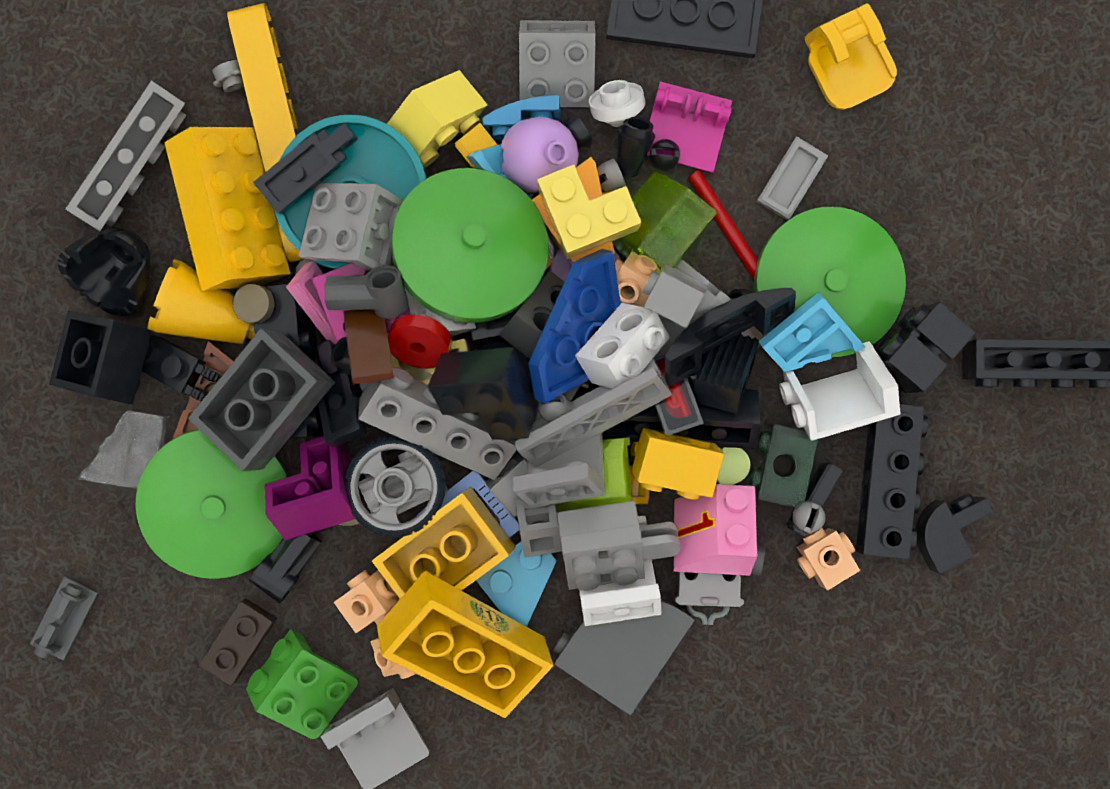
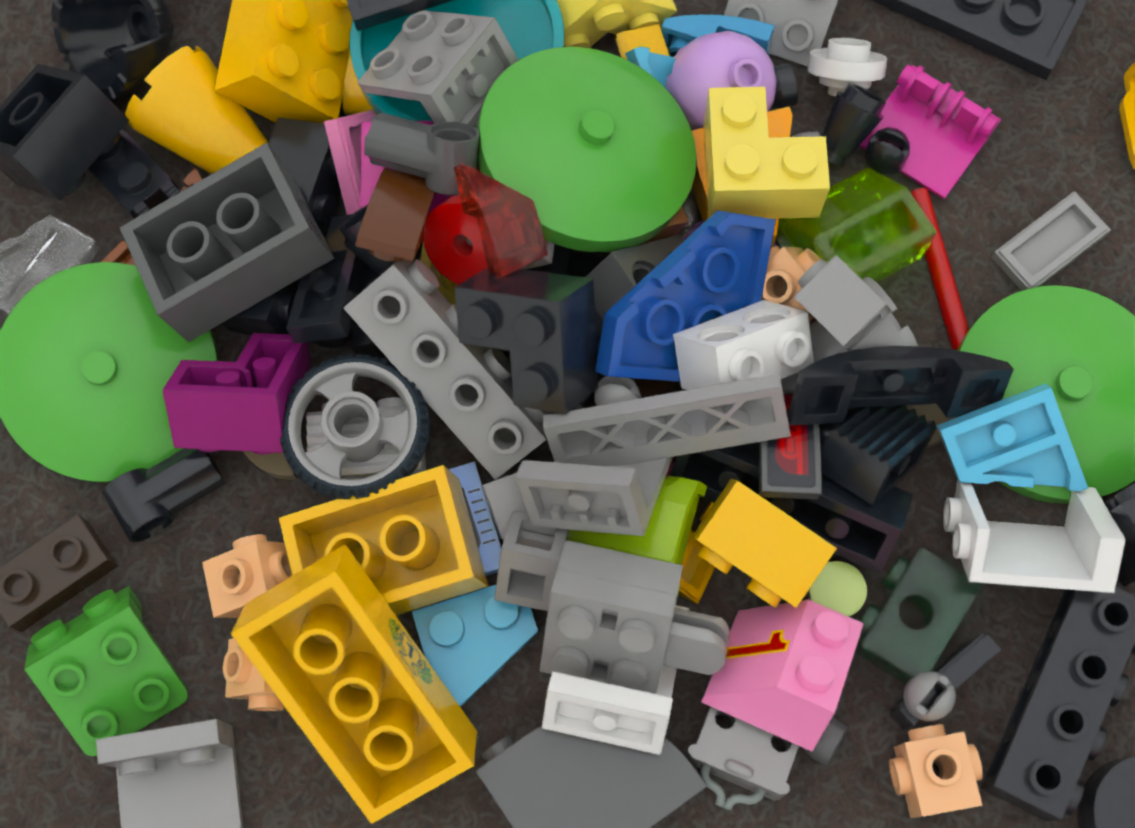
camera: 20 degrees right, 15 degrees down
(253, 303) = (277, 127): dark tan tile -> none
(442, 329) = (505, 221): none -> clear red slope

